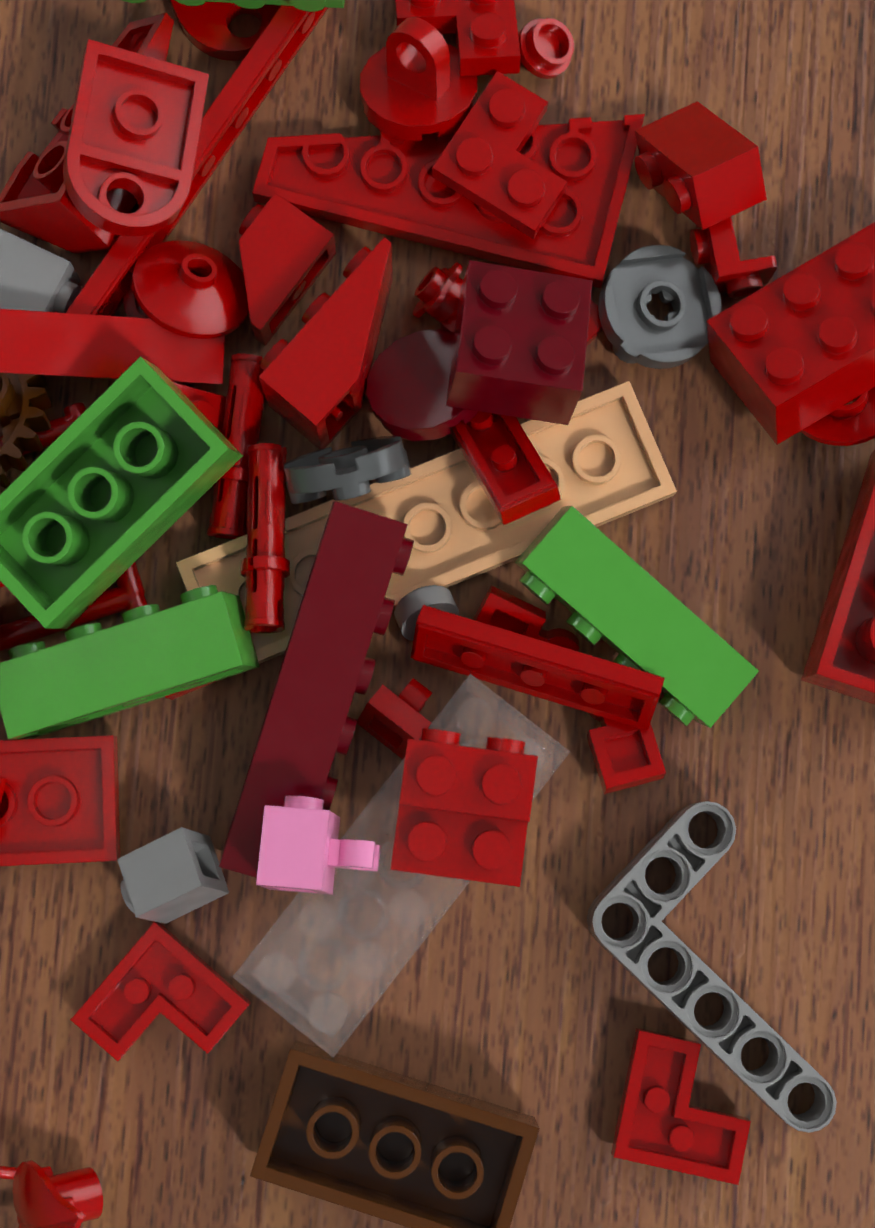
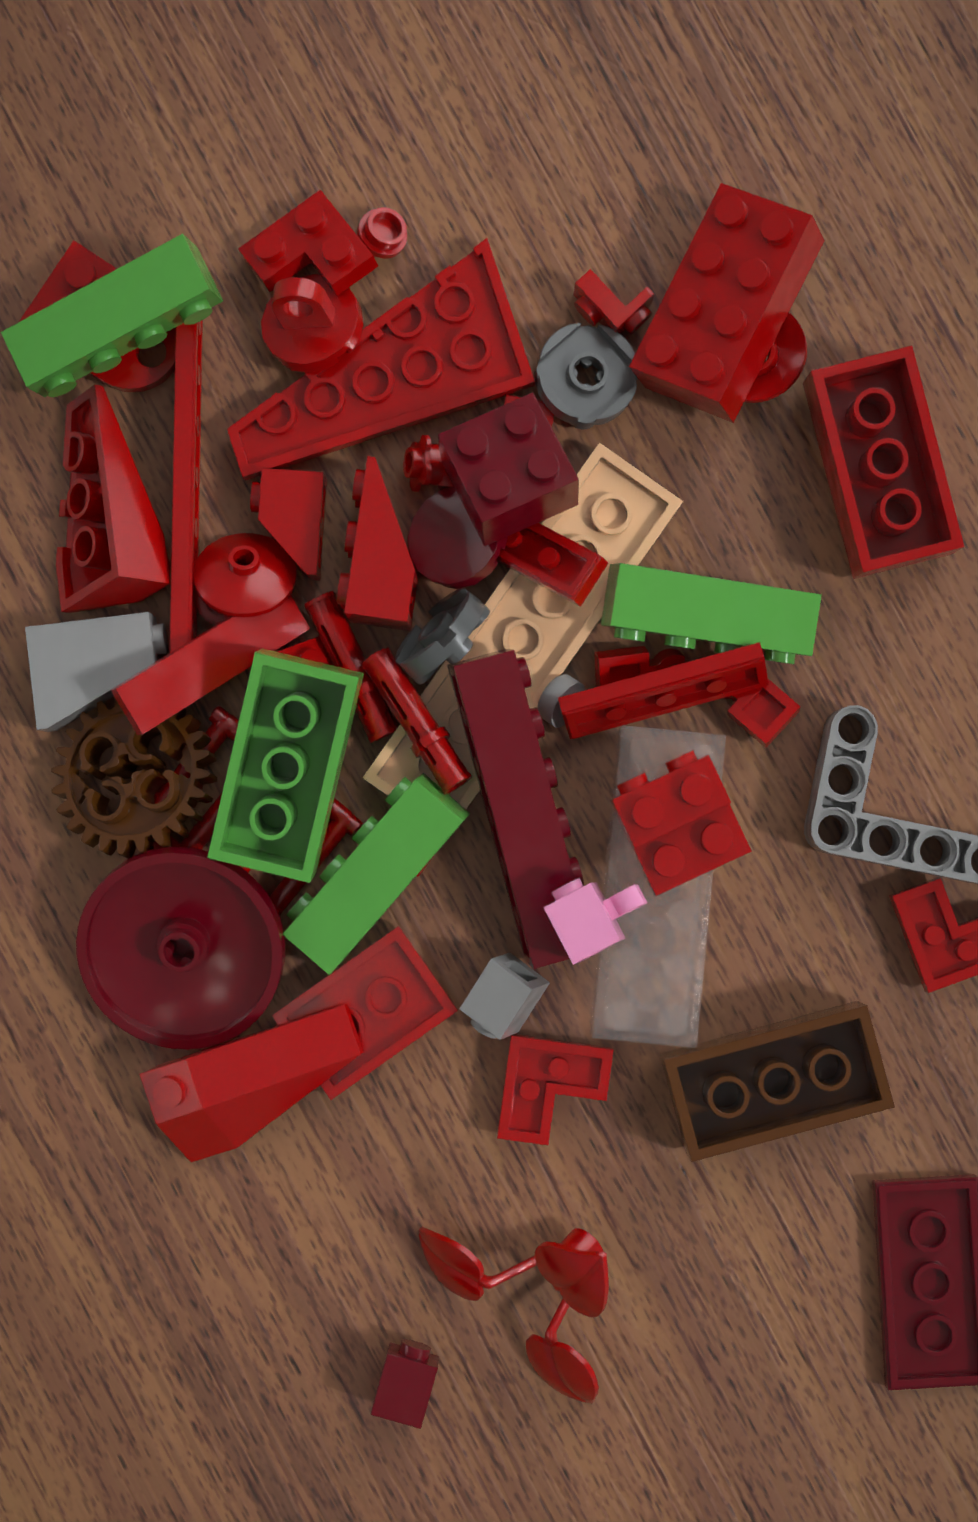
camera: 25 degrees left, 5 degrees up
(133, 132) = (139, 492): red plate -> none
(396, 718) = (587, 788): red tile -> none
(487, 162) = (396, 348): red plate -> none
(700, 165) = (552, 254): red brick -> none

